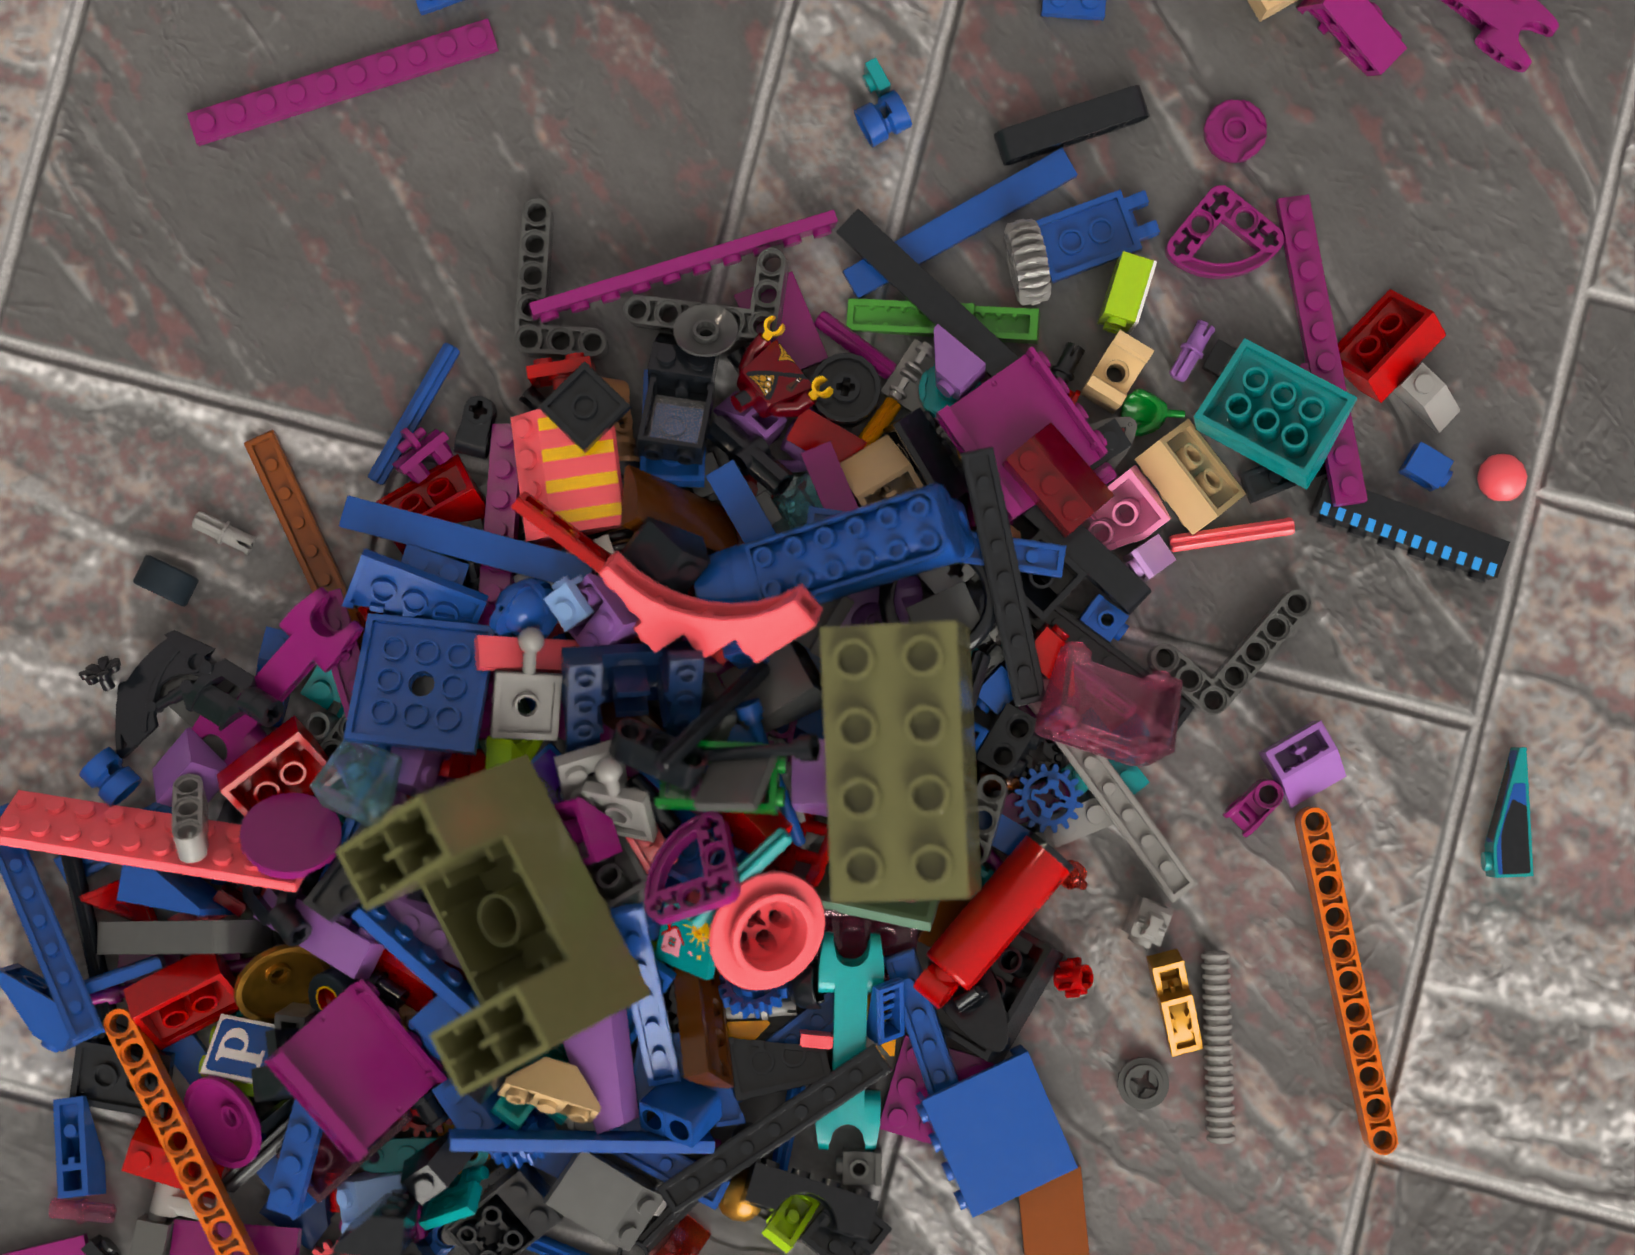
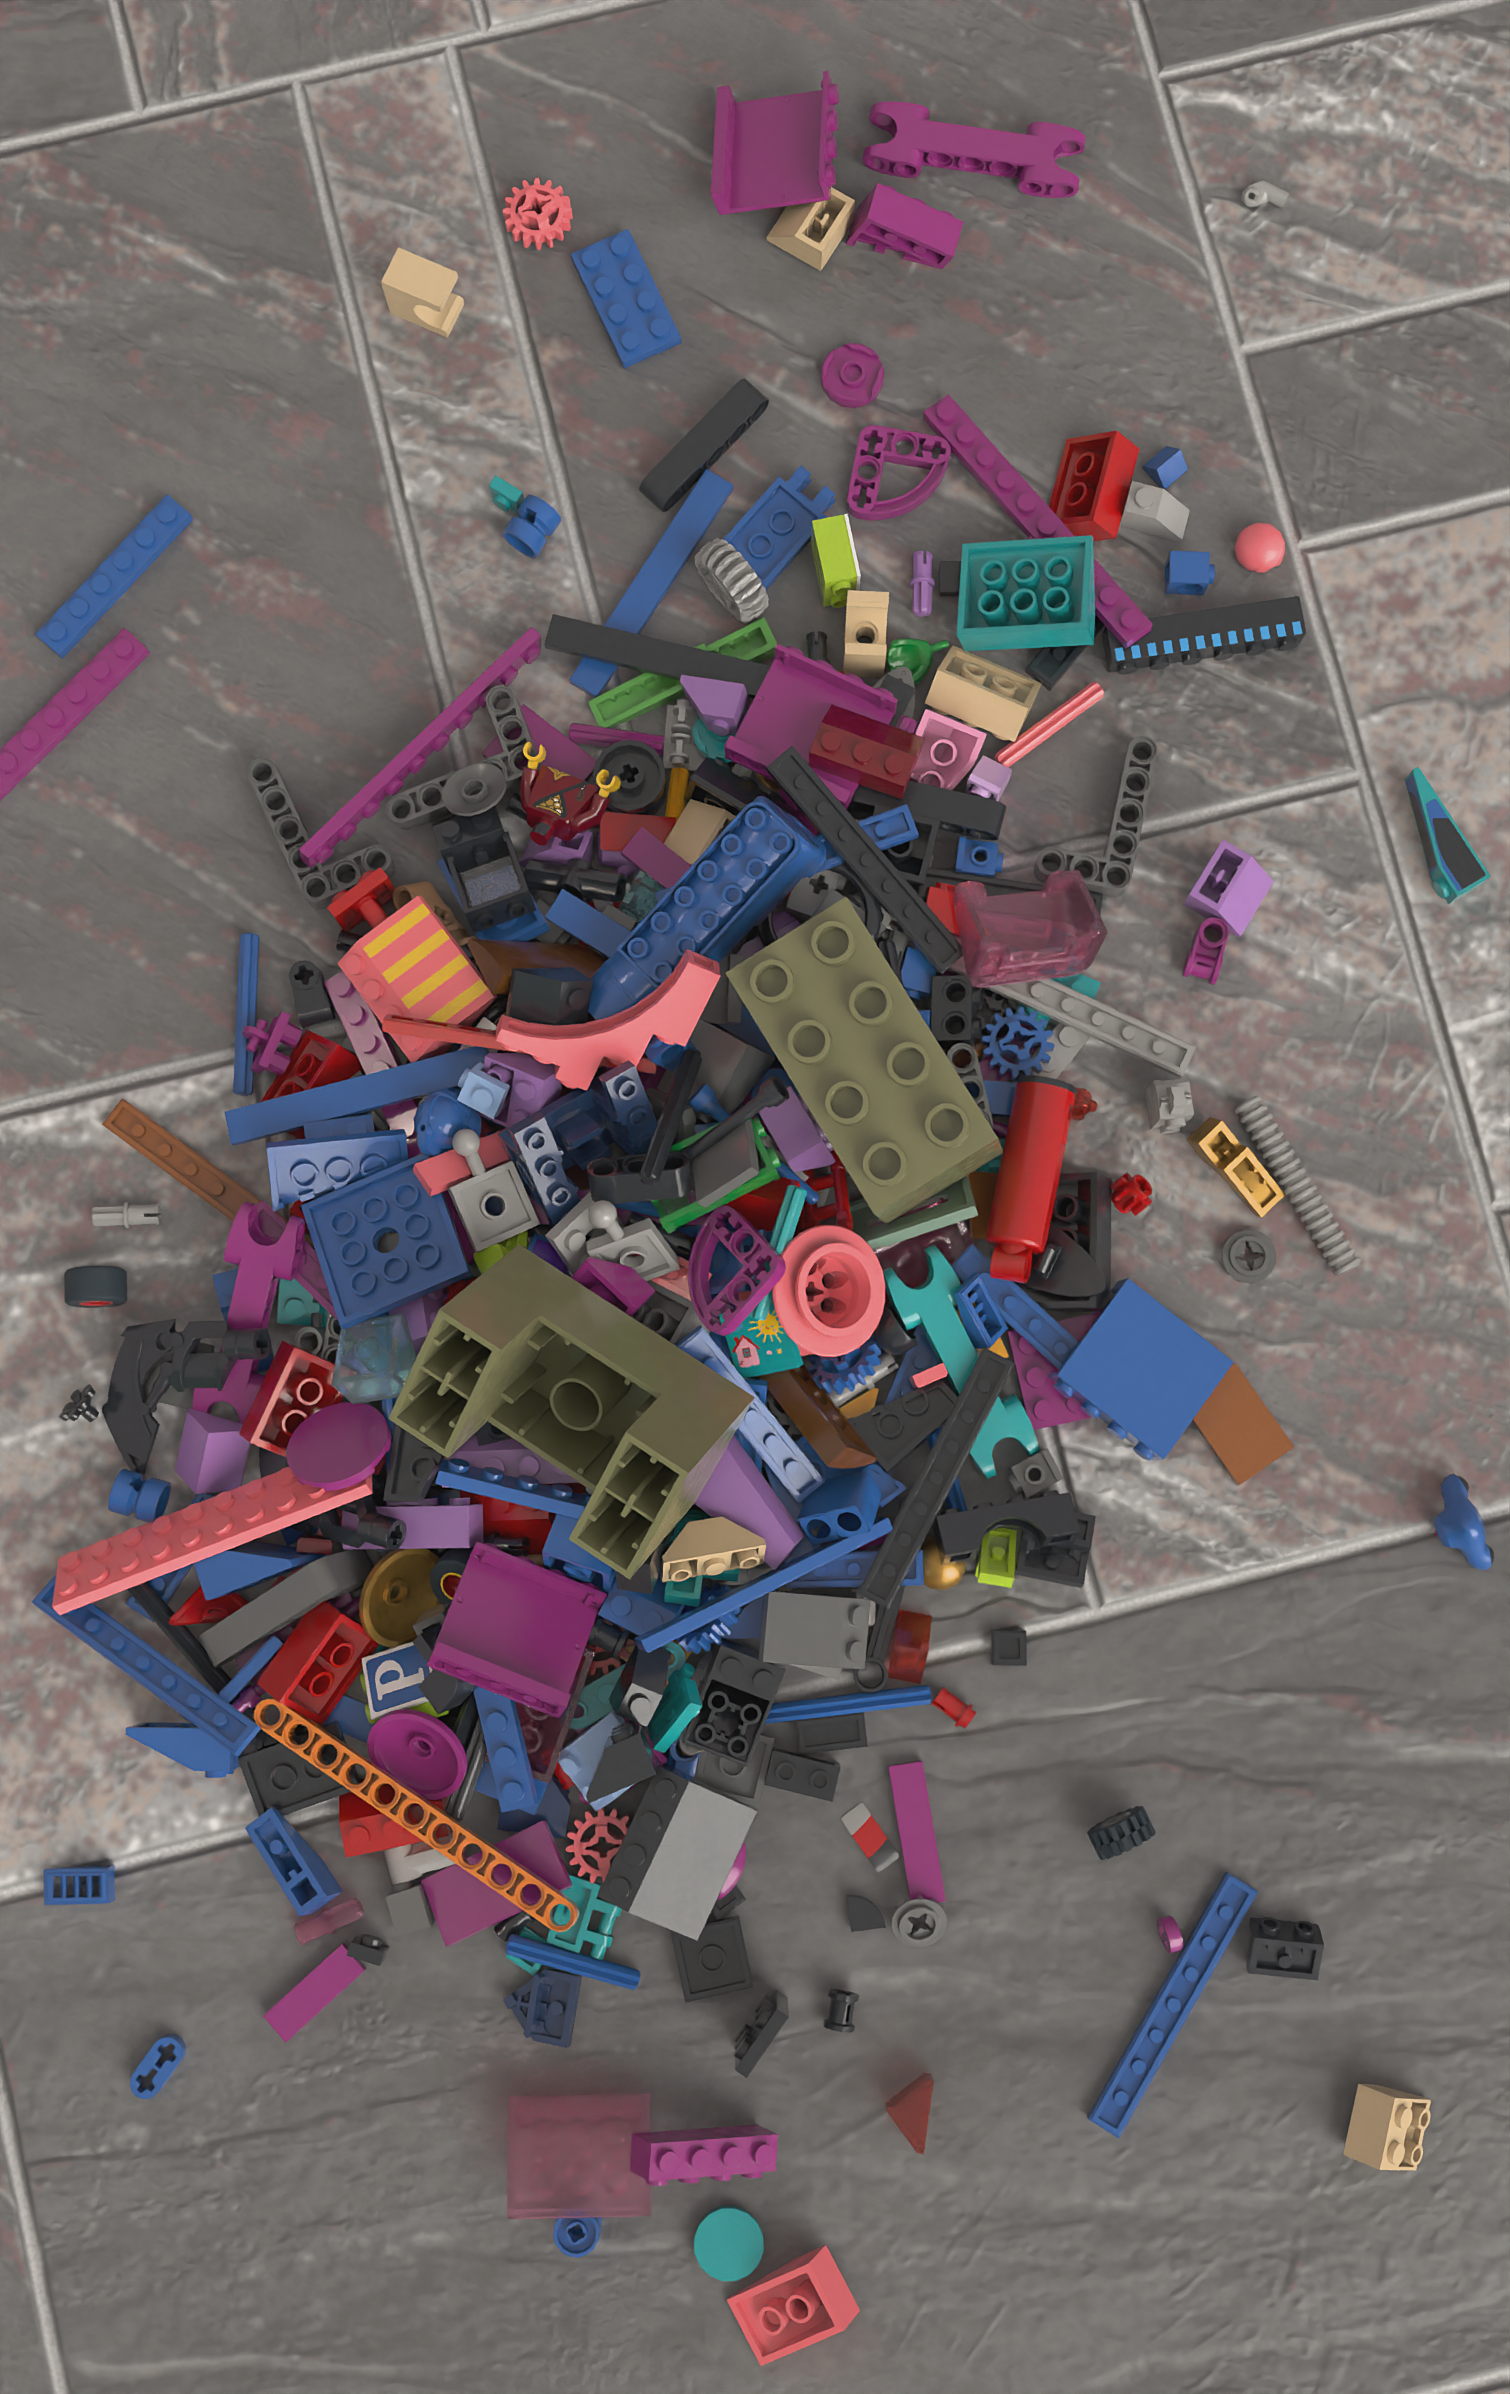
camera: 25 degrees left, 5 degrees down
(190, 818) = (235, 1484): light grey beam -> none
(584, 407) = (401, 912): black plate -> none
(1356, 991) = (1393, 1067): orange beam -> none
(1461, 361) = (1166, 466): none -> blue slope

